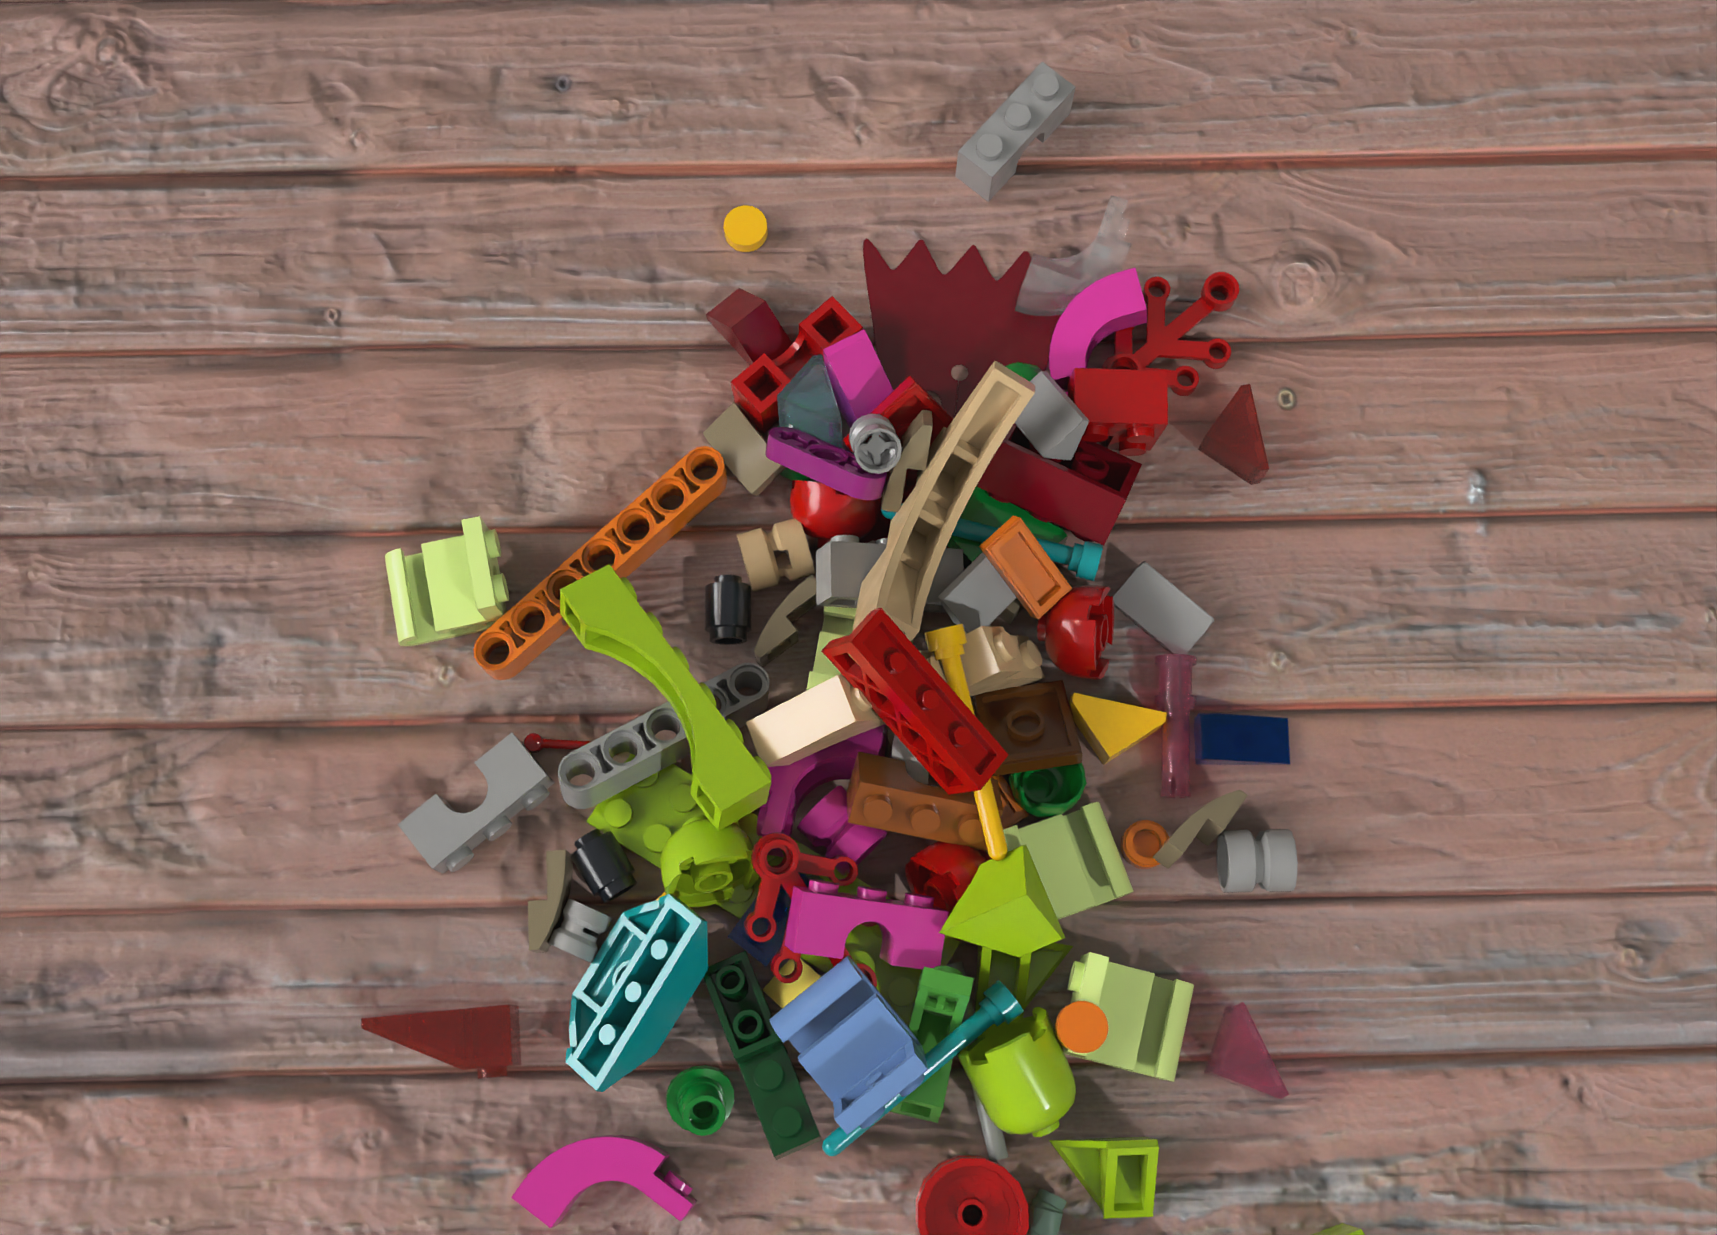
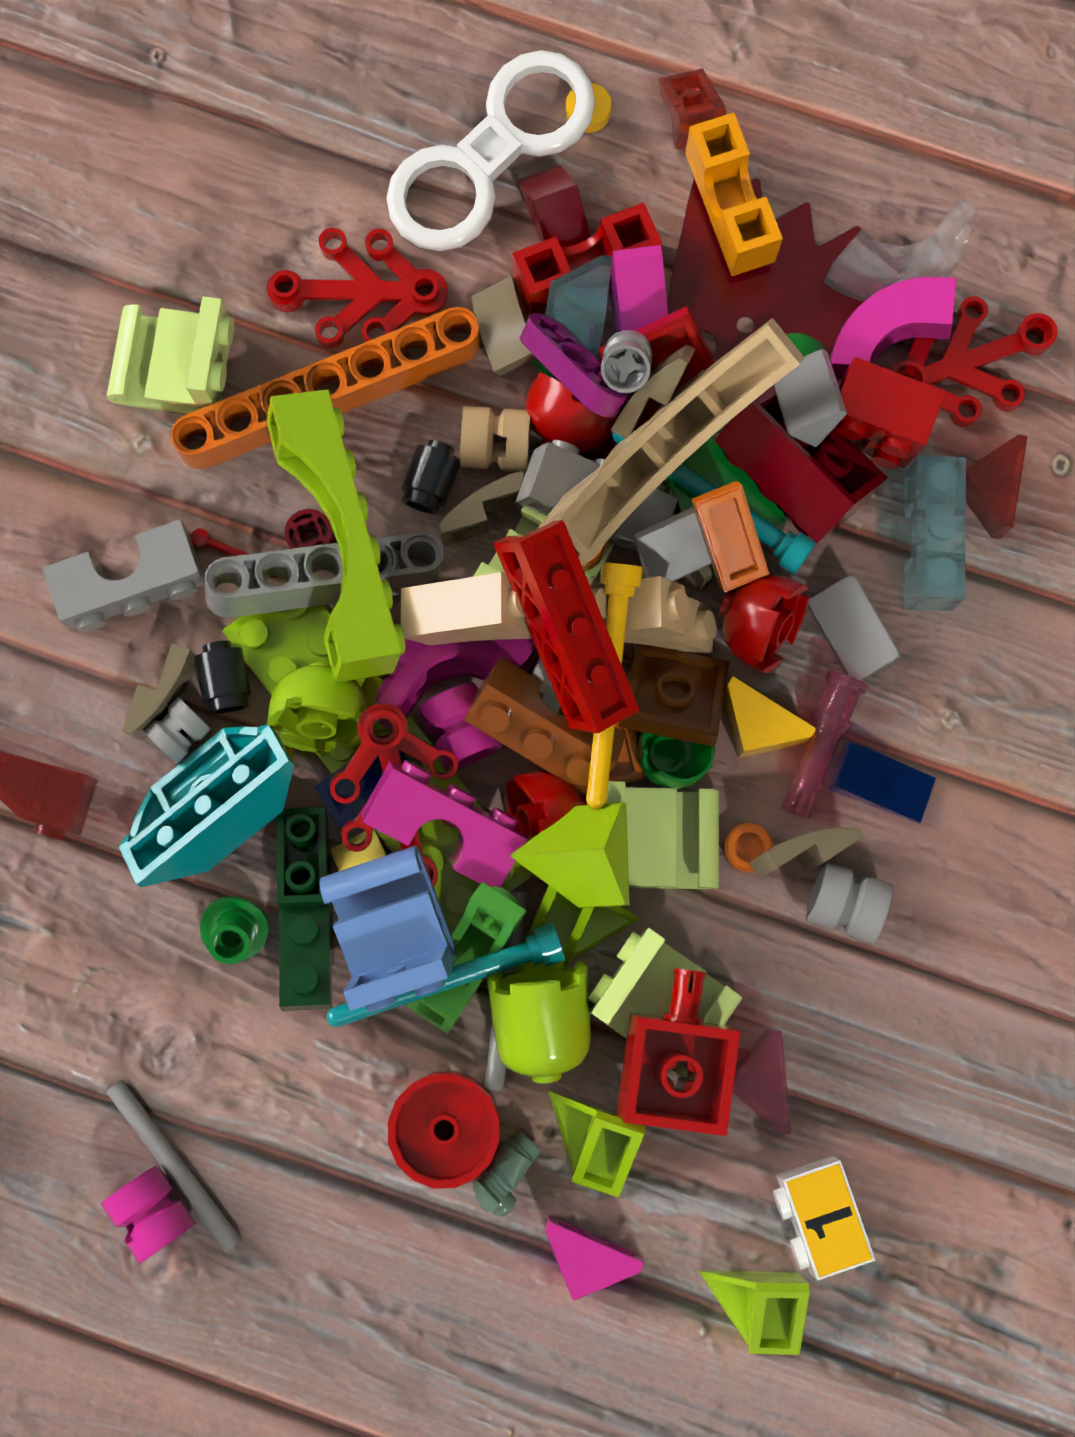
camera: 20 degrees right, 5 degrees up
(568, 1172) = (91, 948): dark pink arch -> none
(604, 461) = (364, 290): none -> red plant
(629, 690) = (304, 520): none -> dark red wheel
(671, 297) = (490, 150): none -> white bar
(841, 195) = (690, 101): none -> clear red slope
(886, 241) = (740, 220): none -> light orange arch
(1027, 114) = (914, 85): light grey arch -> none
(1081, 1027) = (612, 994): orange tile -> none
(1140, 1056) = (705, 1049): none -> red brick
(1212, 517) = (938, 512): none -> clear light blue arch
(1347, 1162) = (823, 1217): none -> yellow brick

